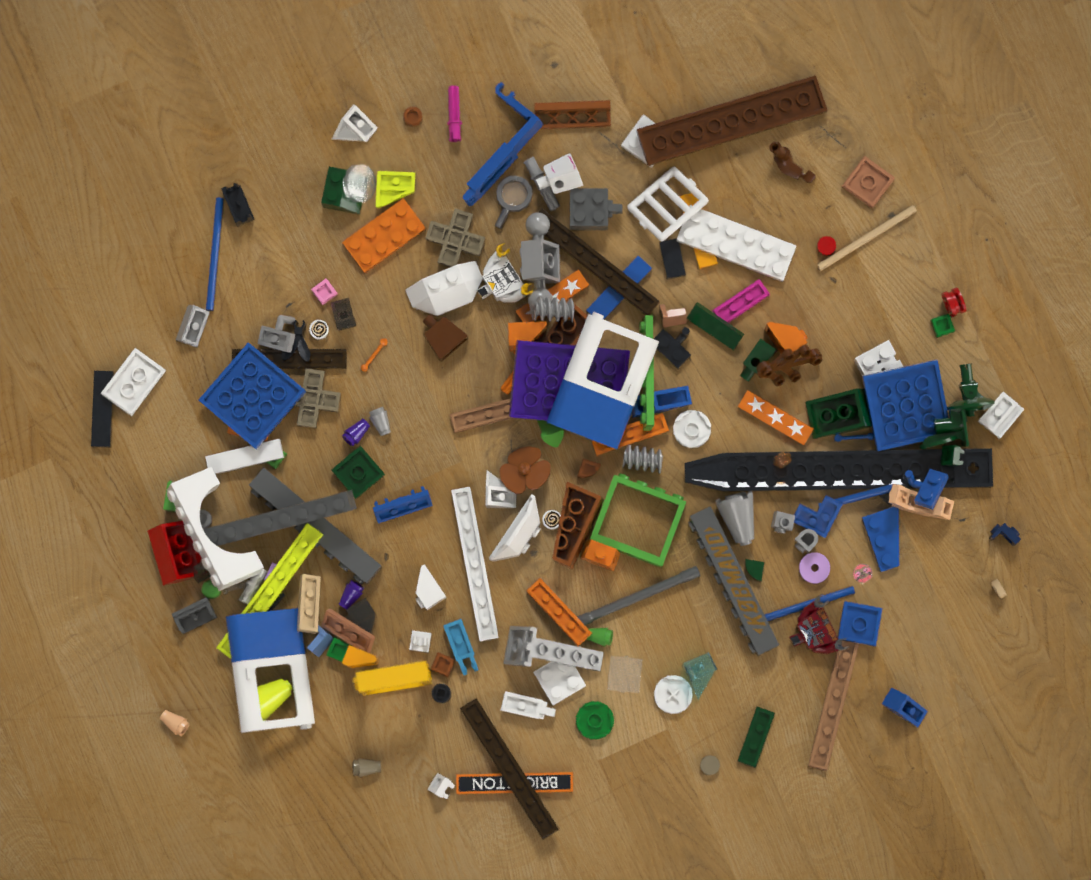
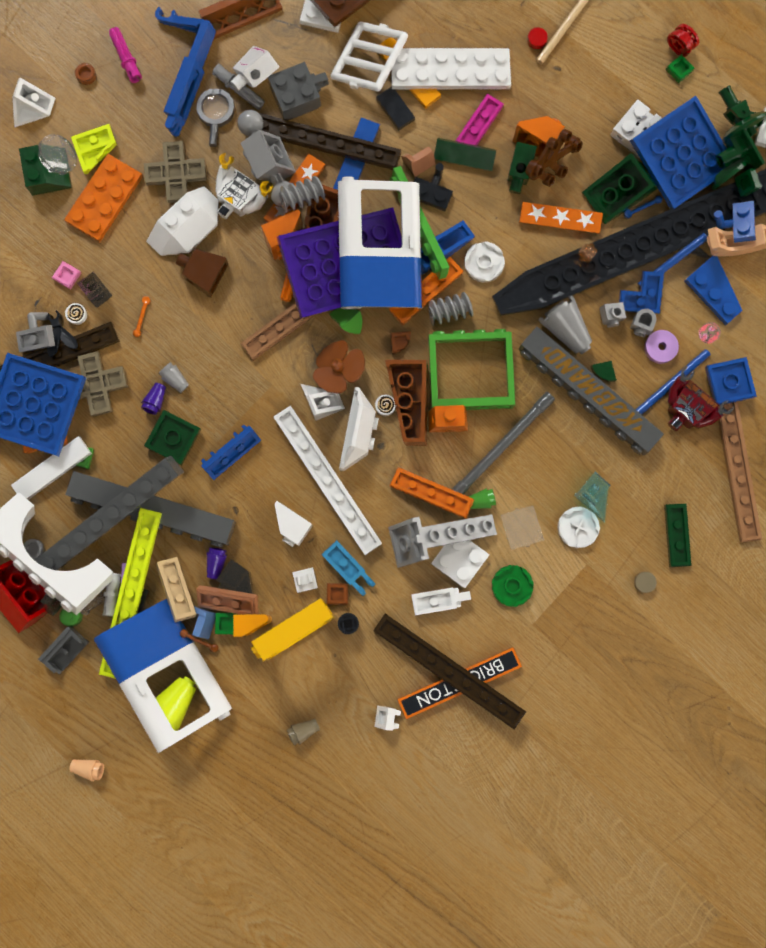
camera: 30 degrees left, 0 degrees up
(319, 666) = (212, 647): none -> dark orange hinge

